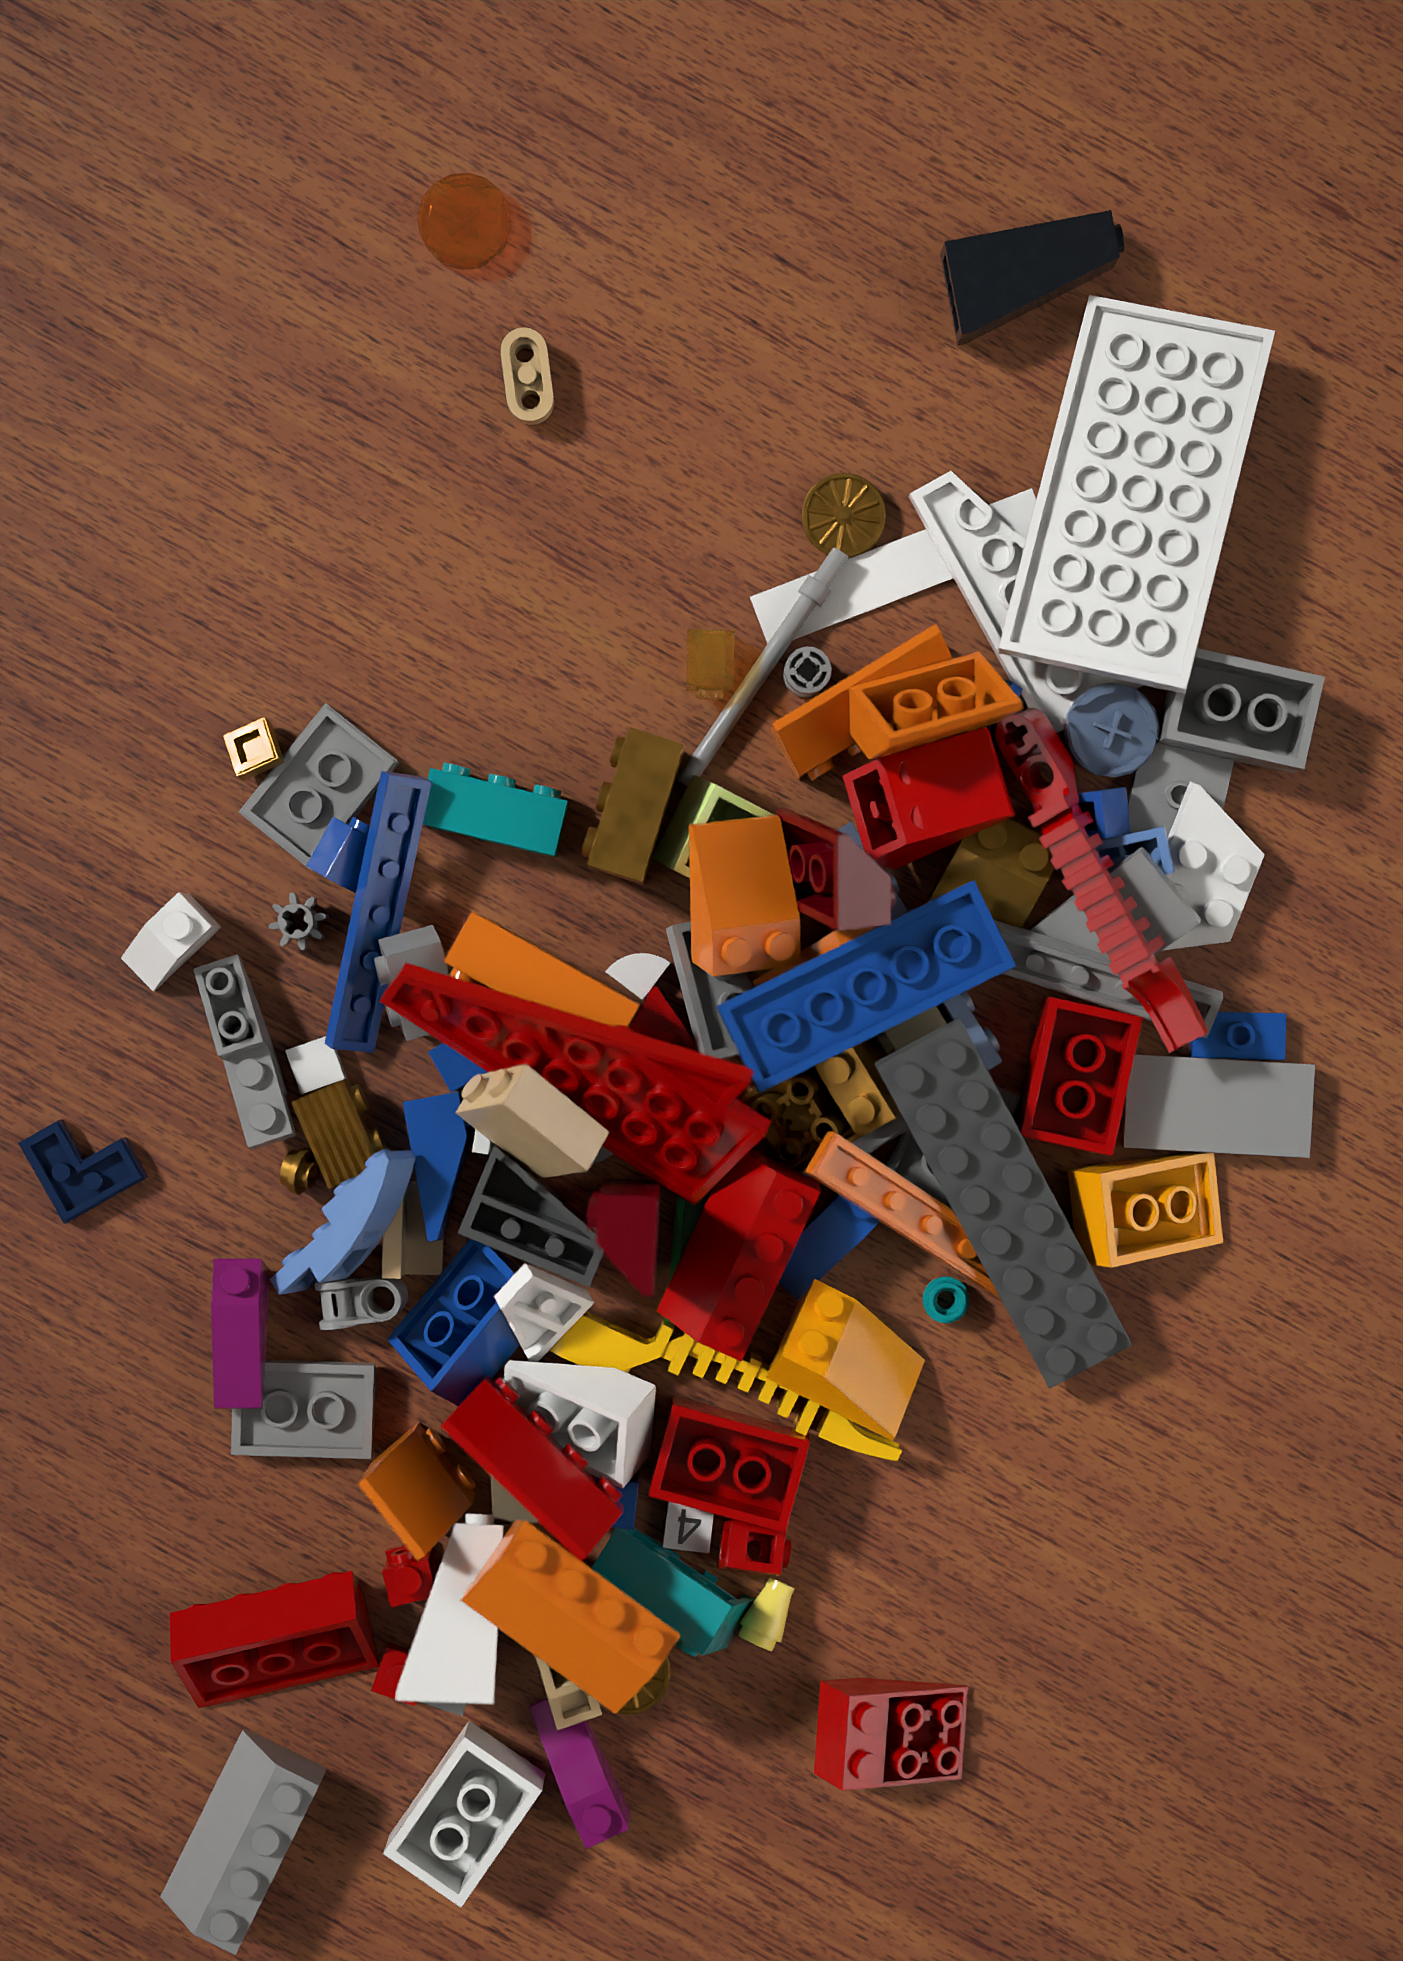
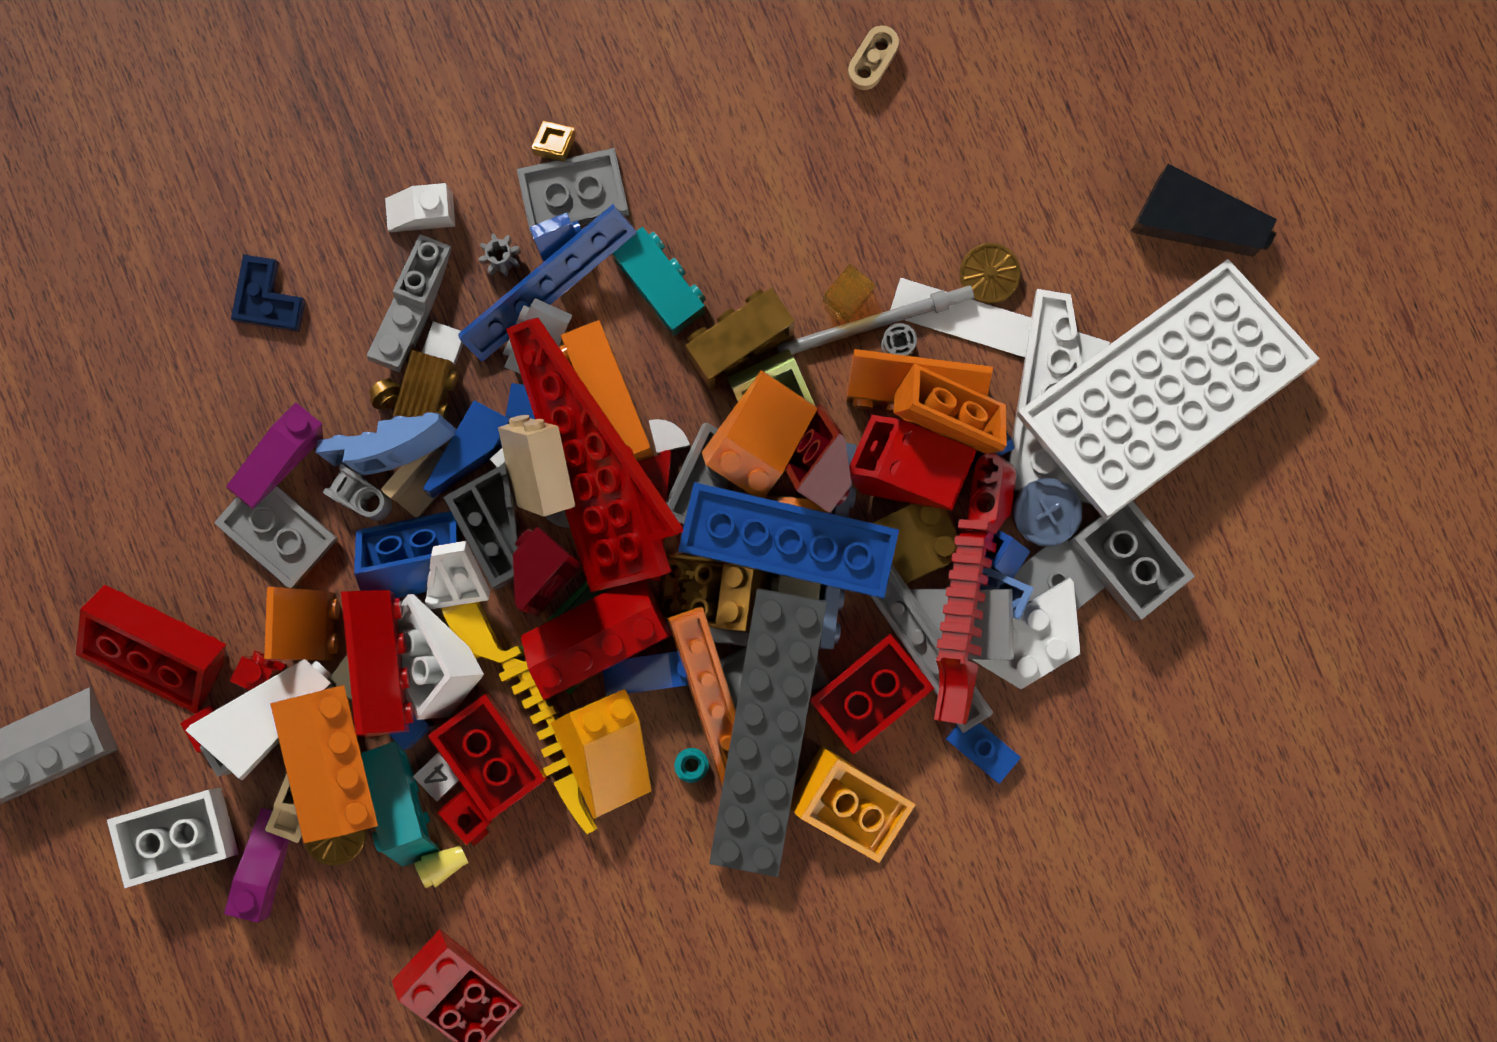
camera: 45 degrees right, 5 degrees down
(1219, 1106) = (939, 779): light grey tile -> none

